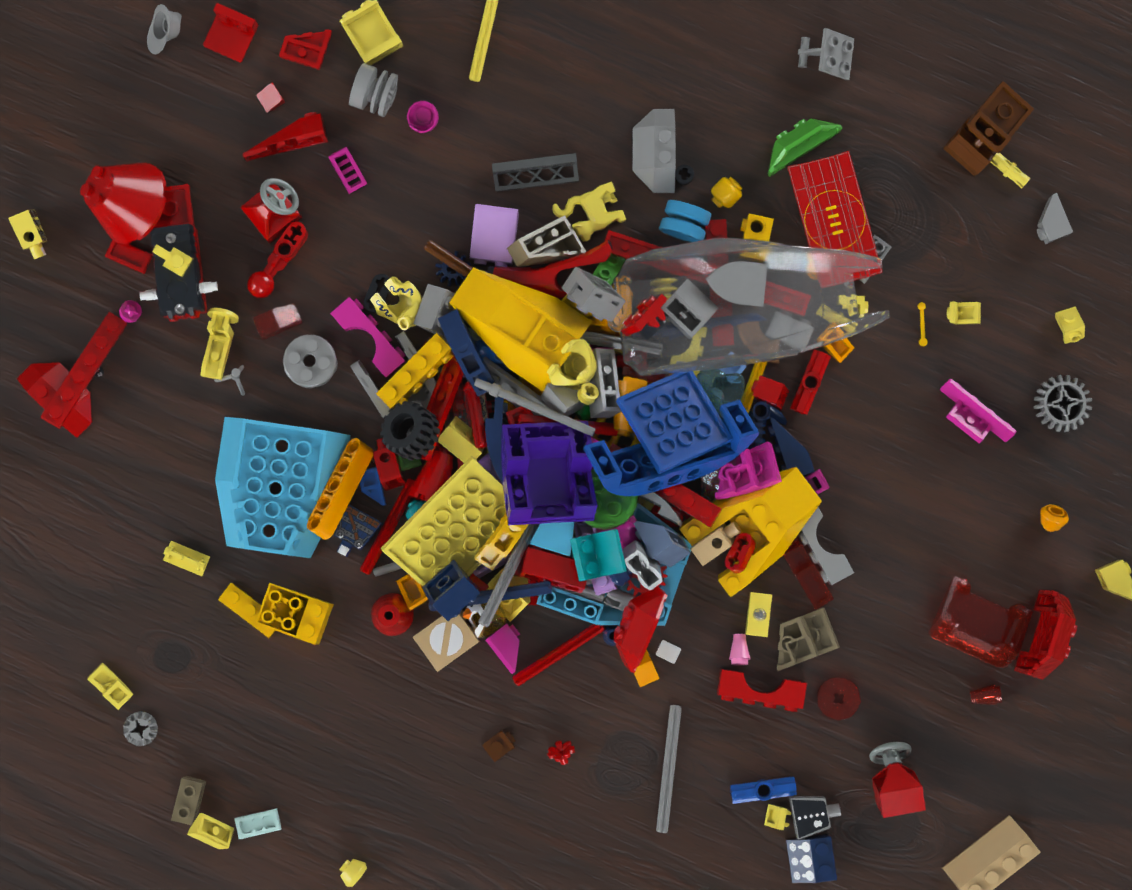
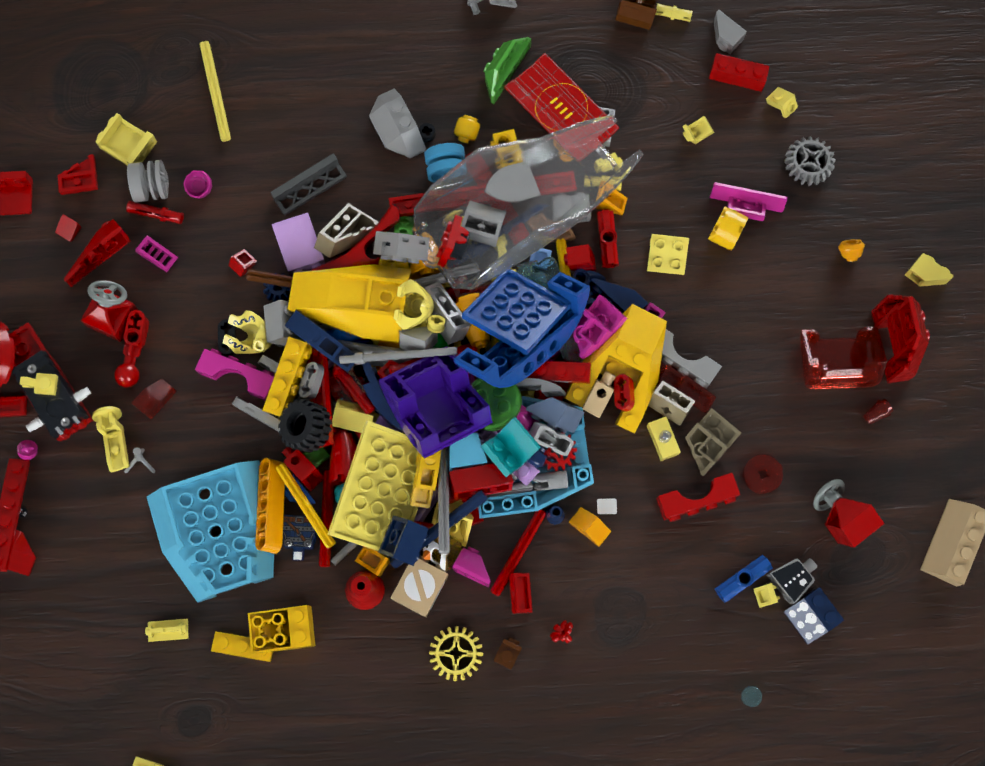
camera: 30 degrees left, 10 degrees down
(320, 372) = (202, 428): light grey plate -> none
(373, 130) = (155, 212): none -> red pin
(373, 505) = (305, 505): none -> yellow axle
(429, 221) = (242, 262): none -> red slope
(438, 386) = (311, 380): none -> light grey beam
(441, 736) = (438, 653): none -> light yellow gear
(540, 694) = (520, 593): none -> red tile
(594, 207) = (369, 188): light yellow animal -> none
(638, 626) = (573, 493): red wedge -> none
(668, 768) = (657, 601): light grey axle -> none
(739, 651) = (664, 476): bright pink cone -> none
(784, 583) = (671, 403): none -> dark tan brick
(863, 429) = (668, 254): none -> light yellow hinge
(923, 341) = (678, 168): yellow hinge -> none
(937, 434) = (728, 228): none -> yellow brick
(1041, 271) = (739, 72): none -> red brick

